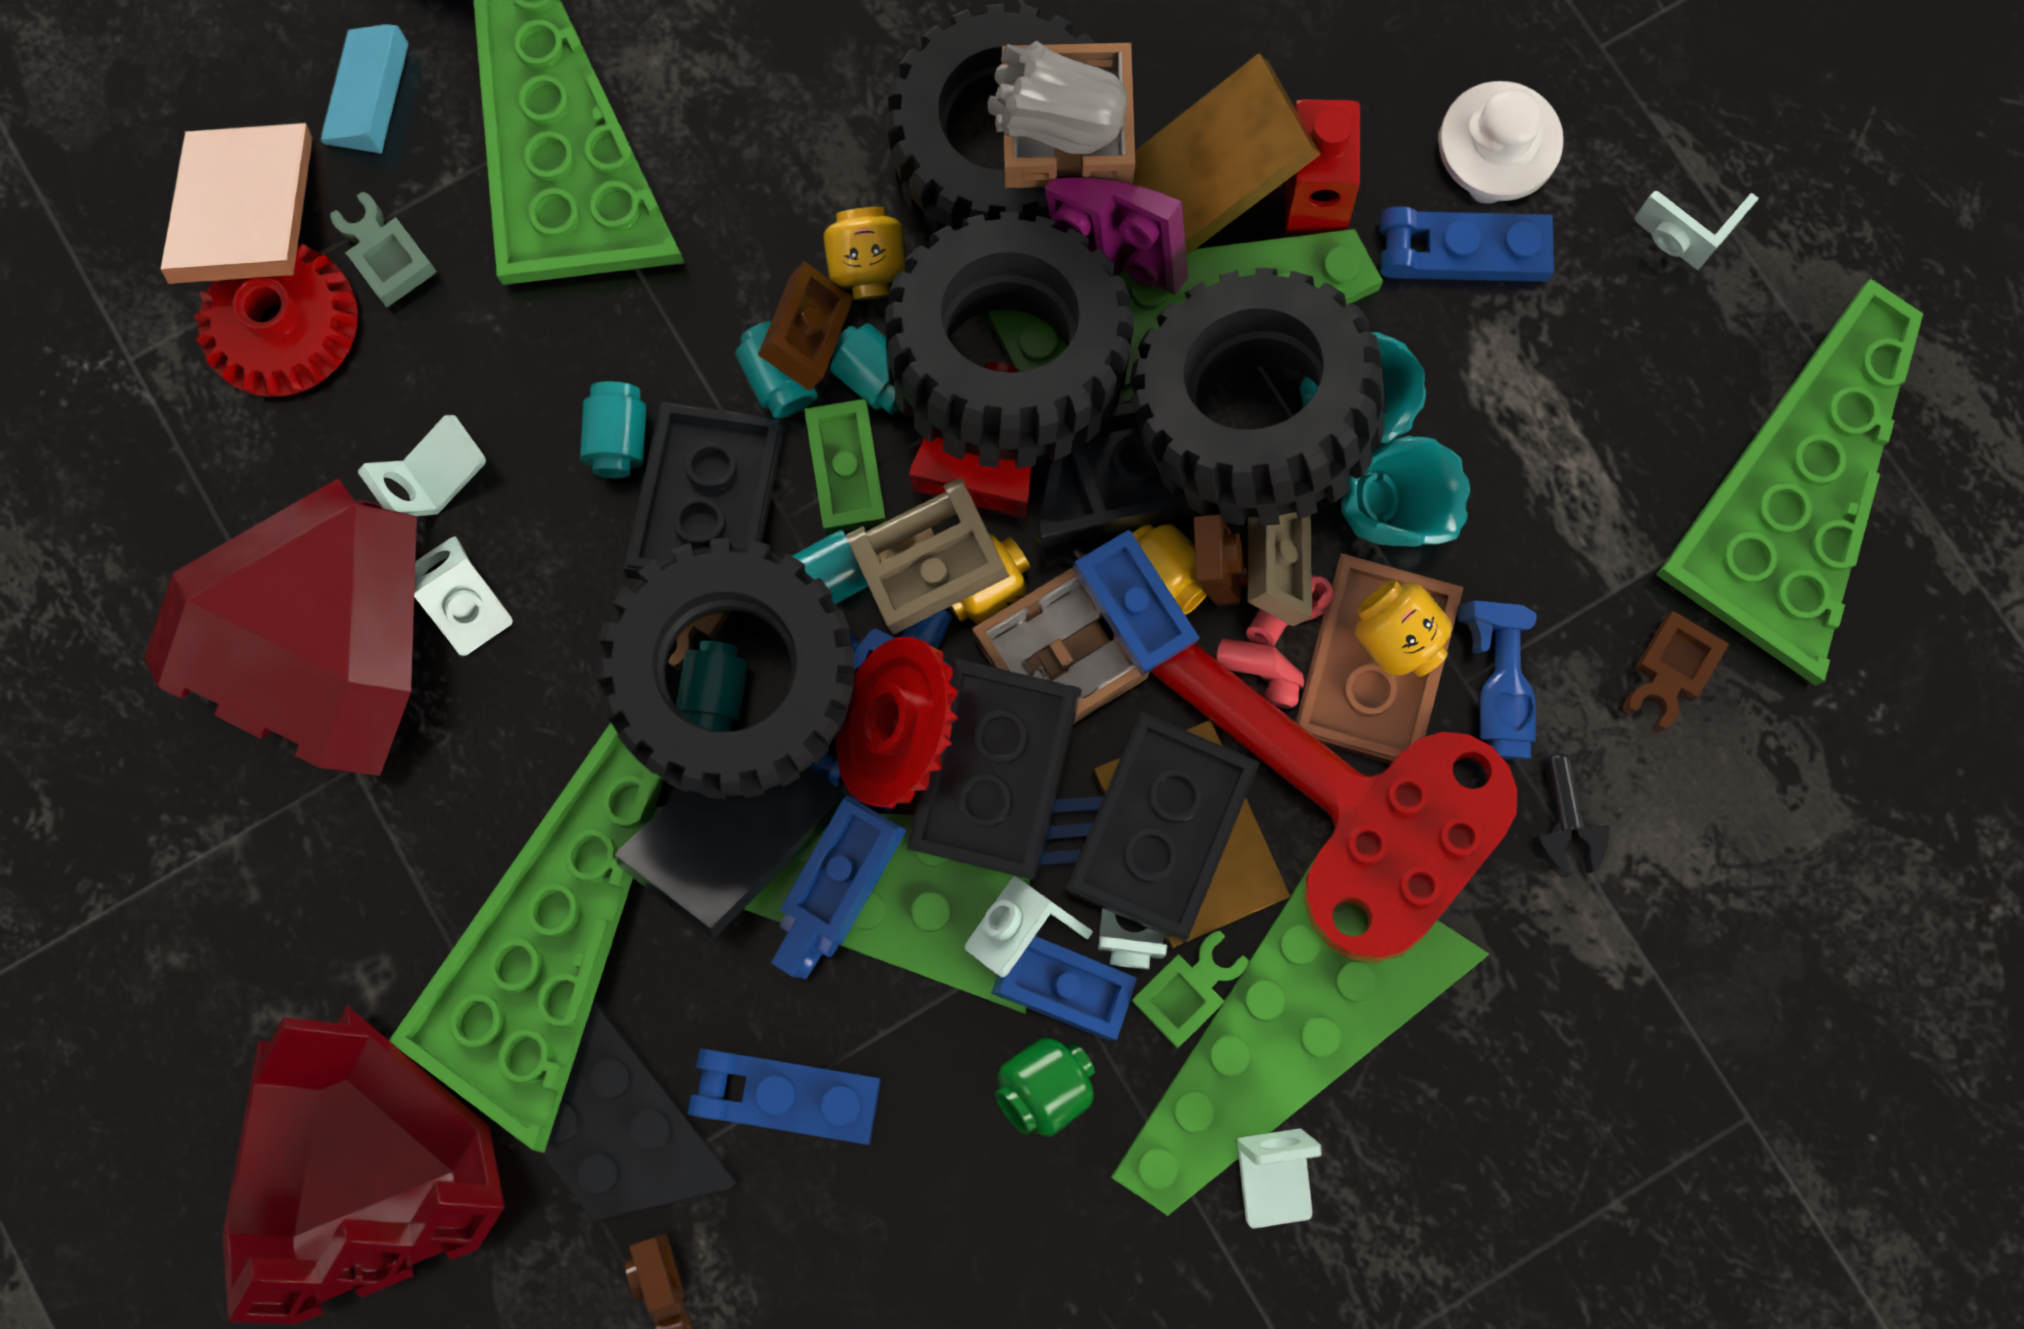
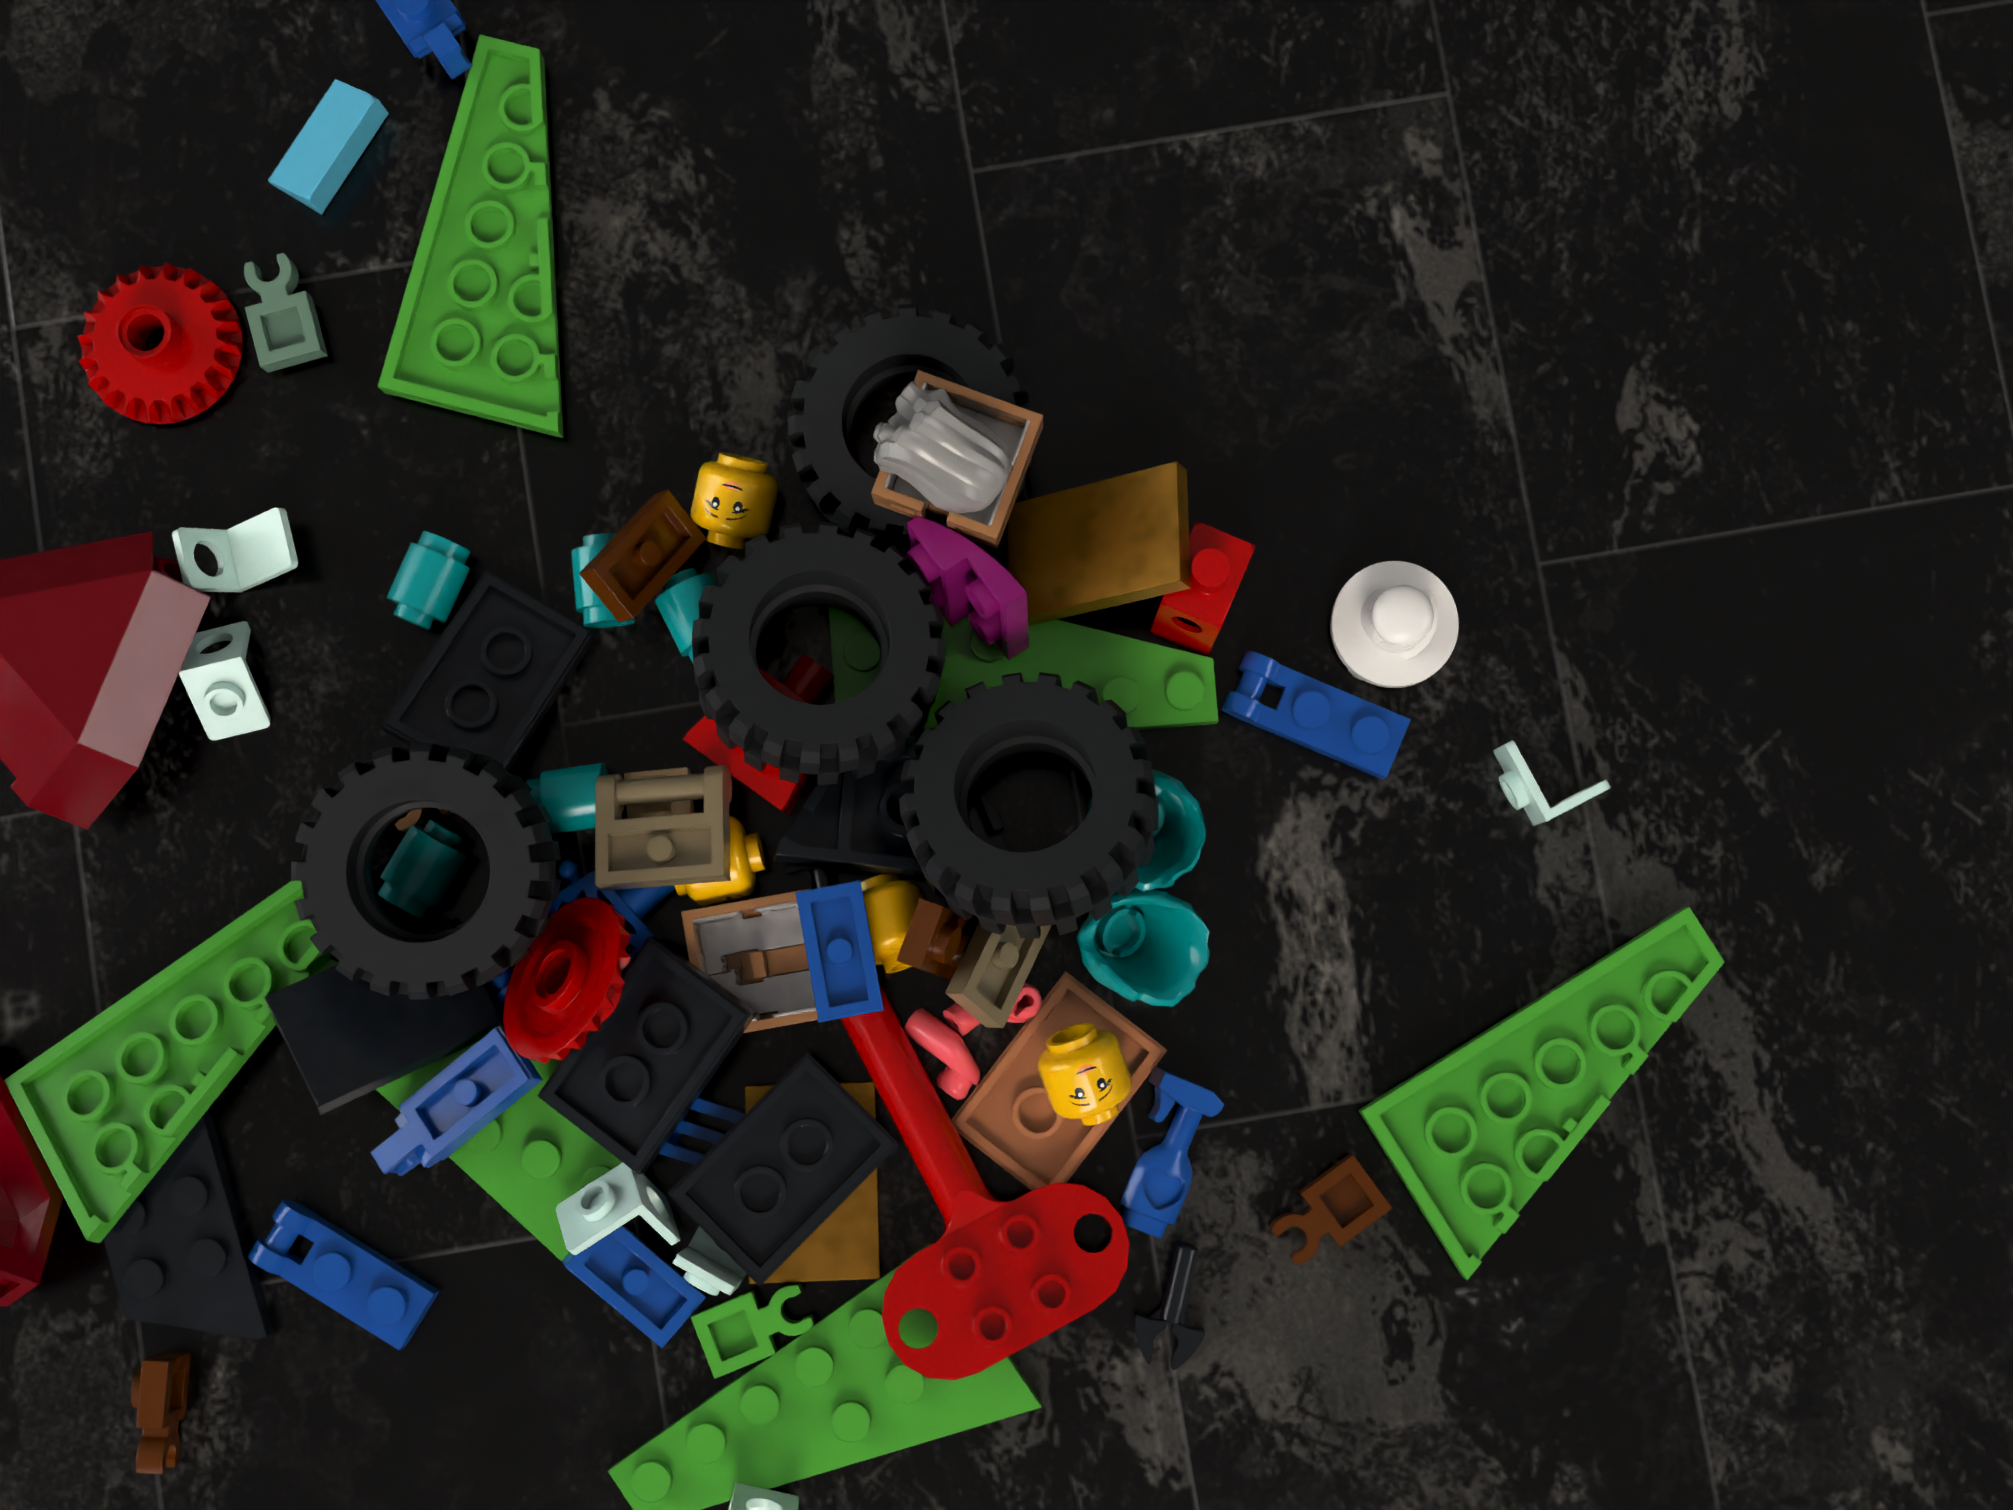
camera: 25 degrees right, 5 degrees up
(237, 204) = (161, 220): tile -> none
(845, 466) = (633, 701): bright green plate -> none
(1045, 1086) = (579, 1364): green head -> none

